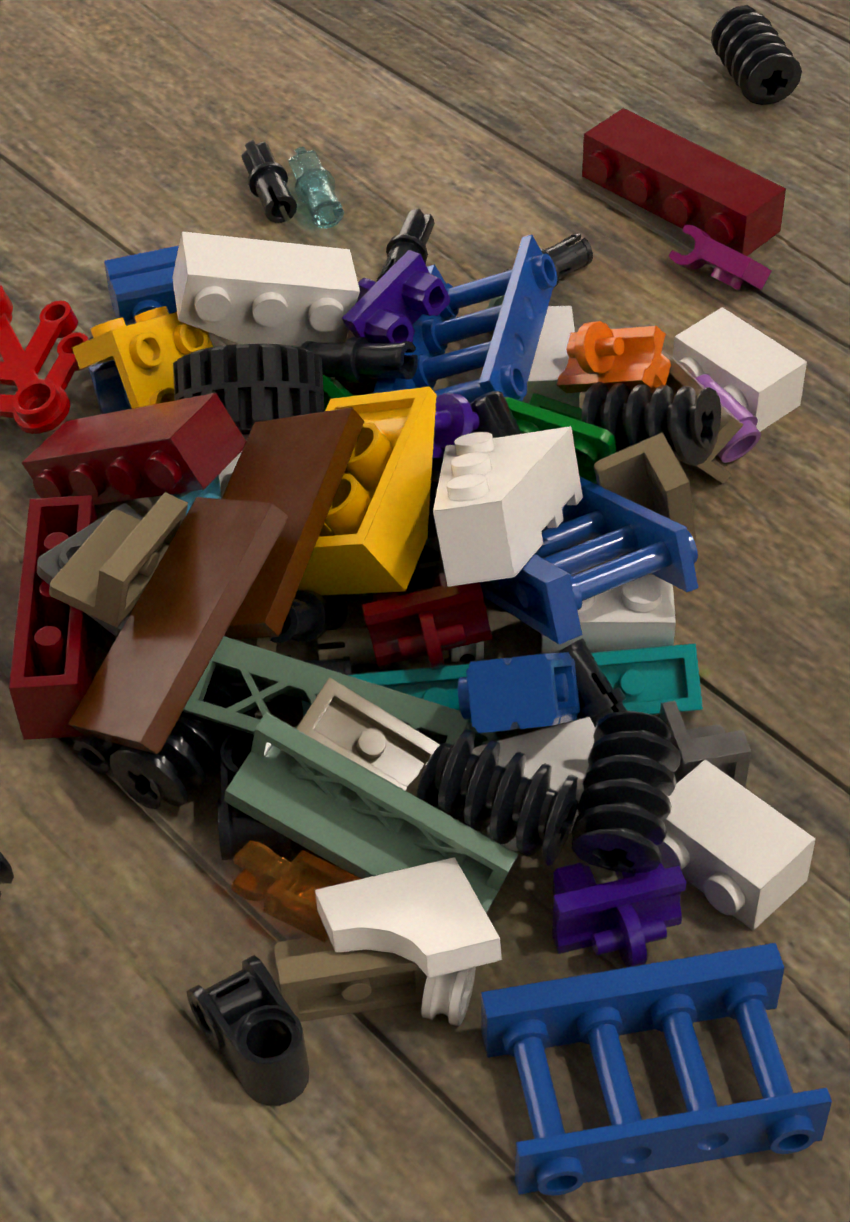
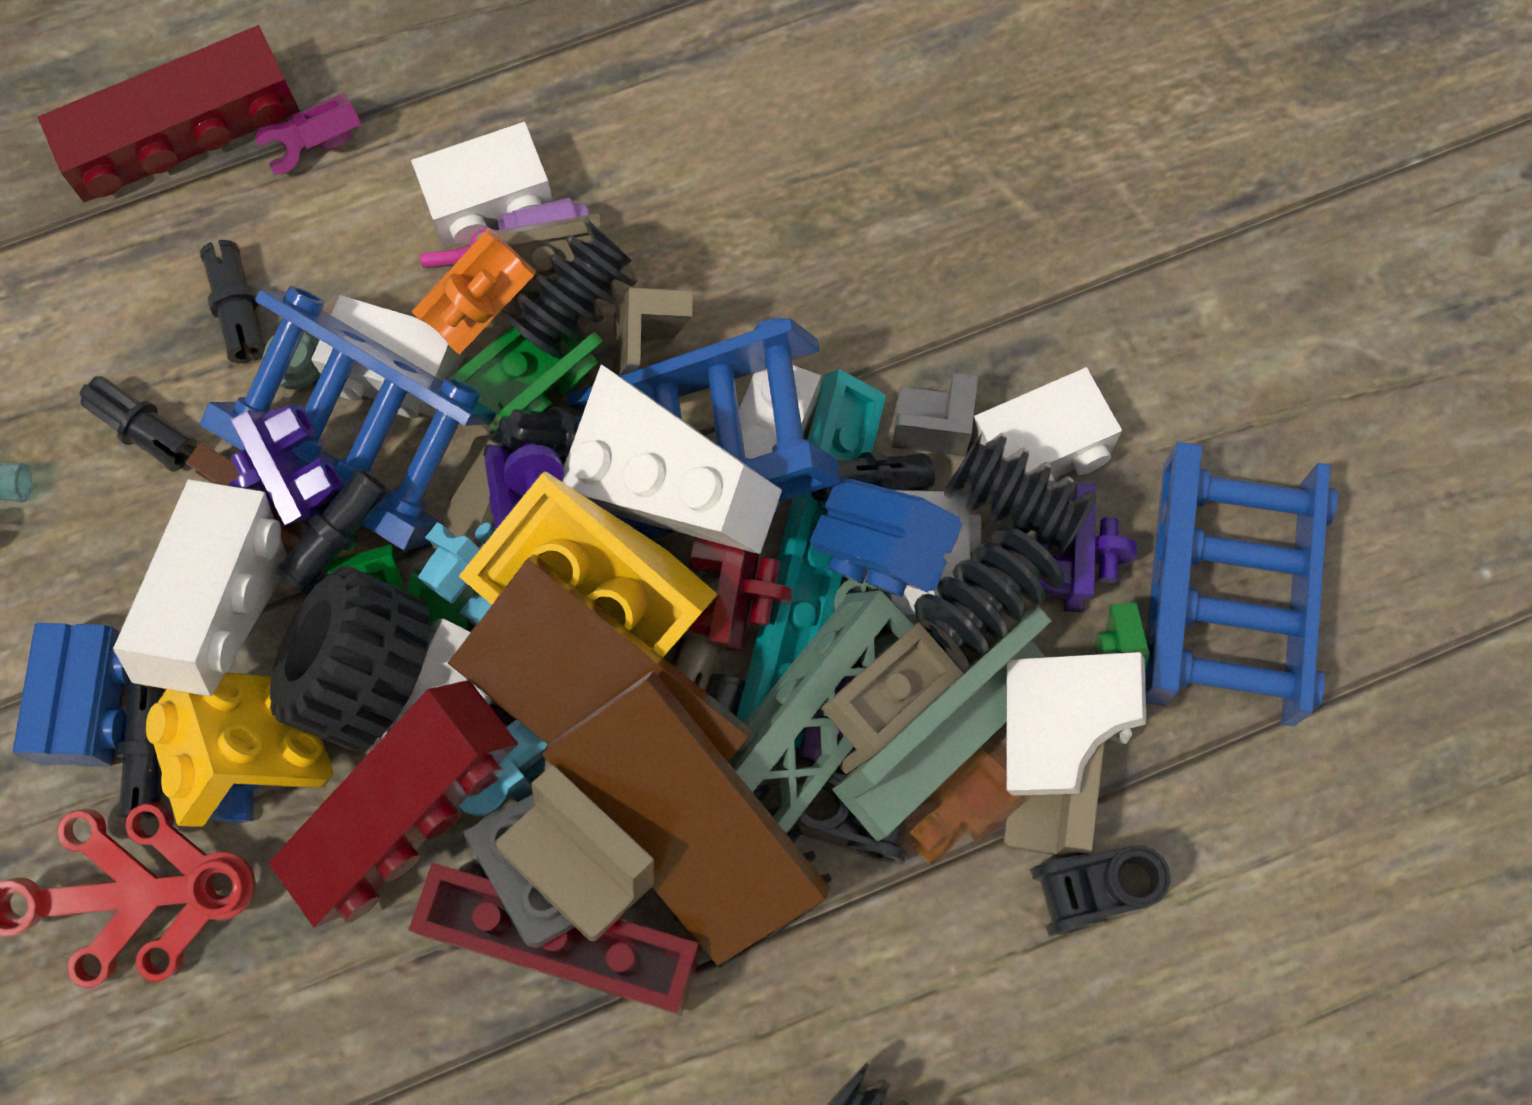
camera: 70 degrees left, 25 degrees up
(523, 963) = (1123, 632): none -> green plate

